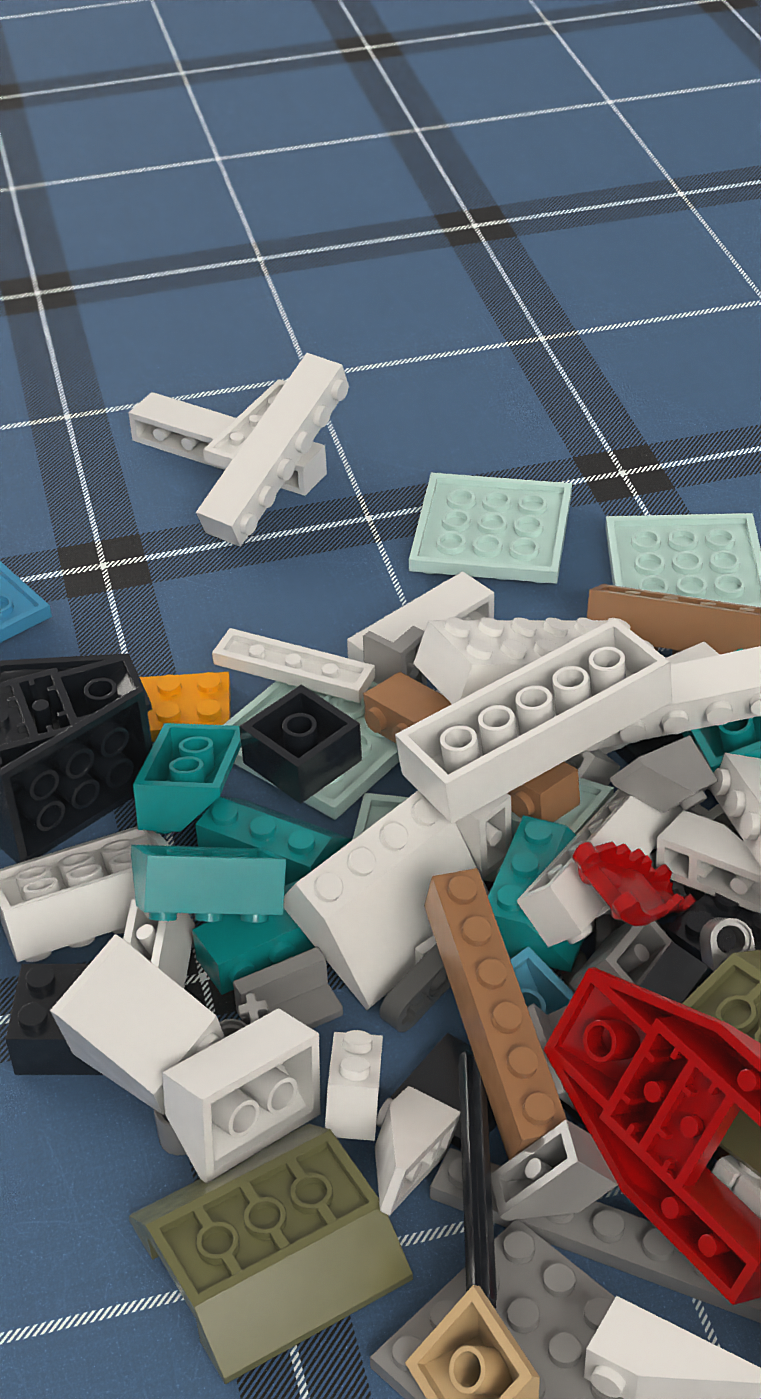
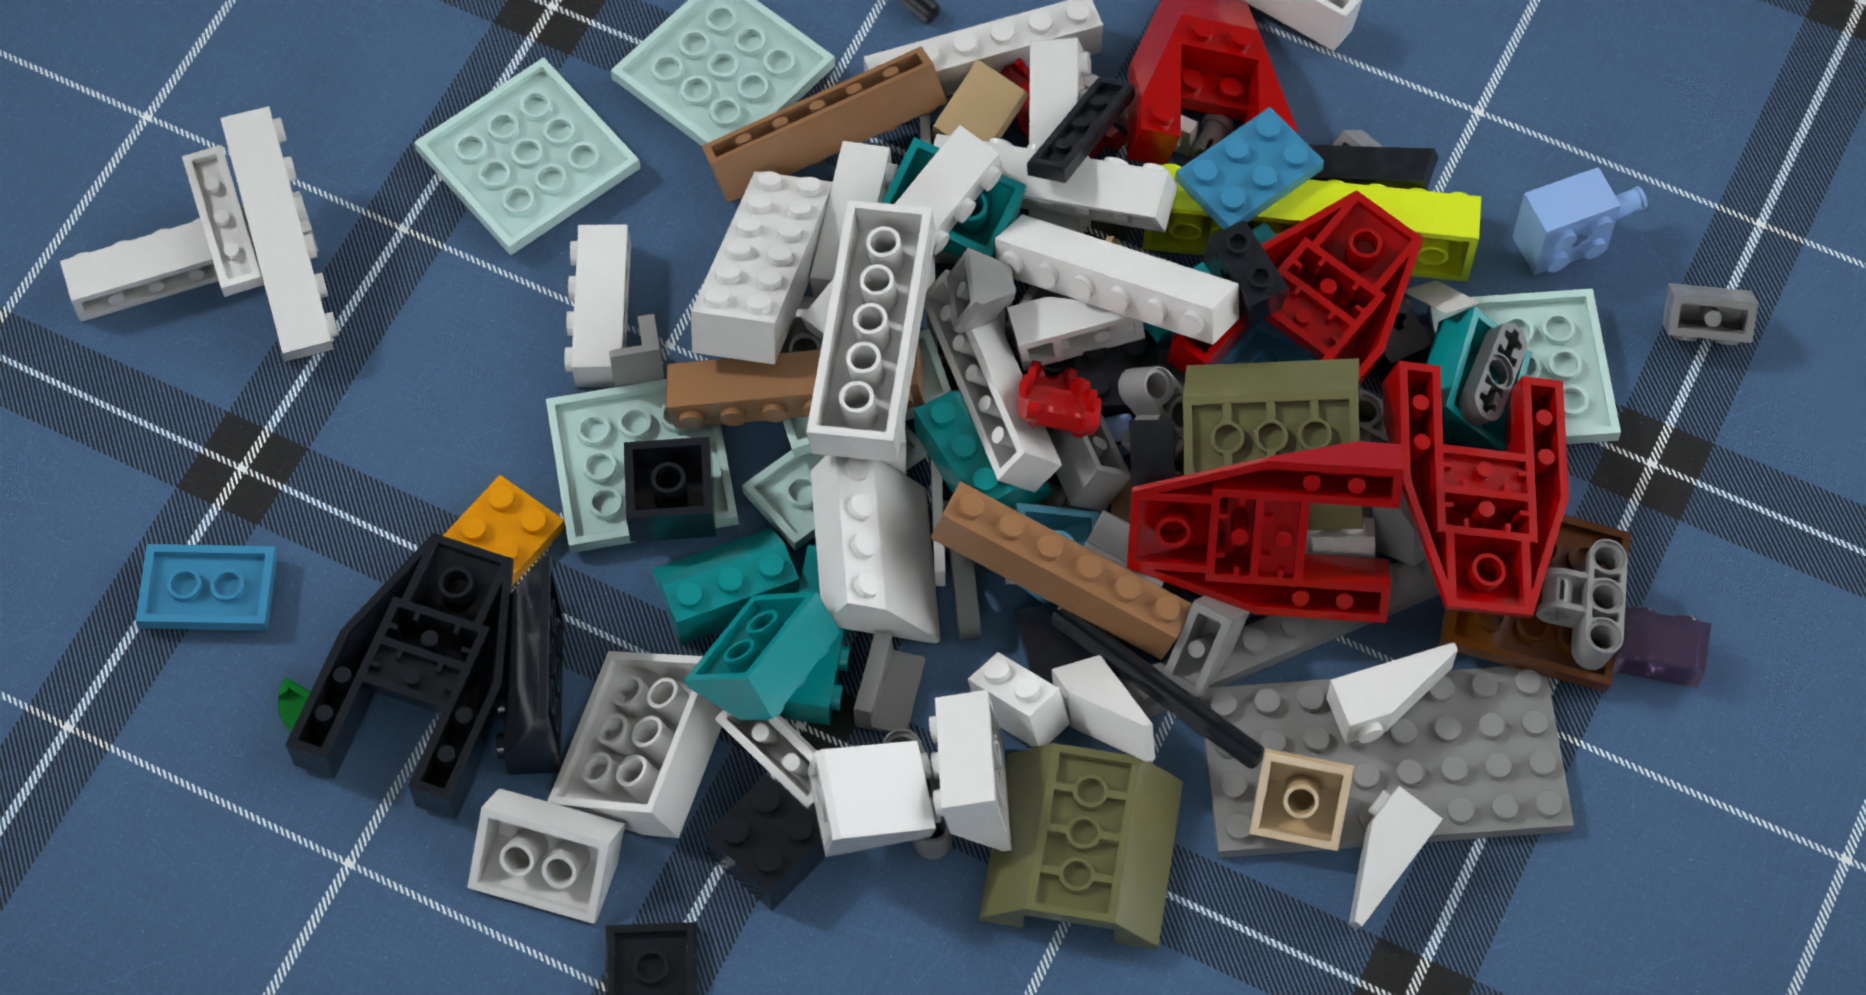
camera: 50 degrees left, 20 degrees up
(183, 774) = (619, 587): teal slope -> none
(252, 1009) = (902, 716): light grey axle -> none
(294, 665) = (560, 426): white plate -> none

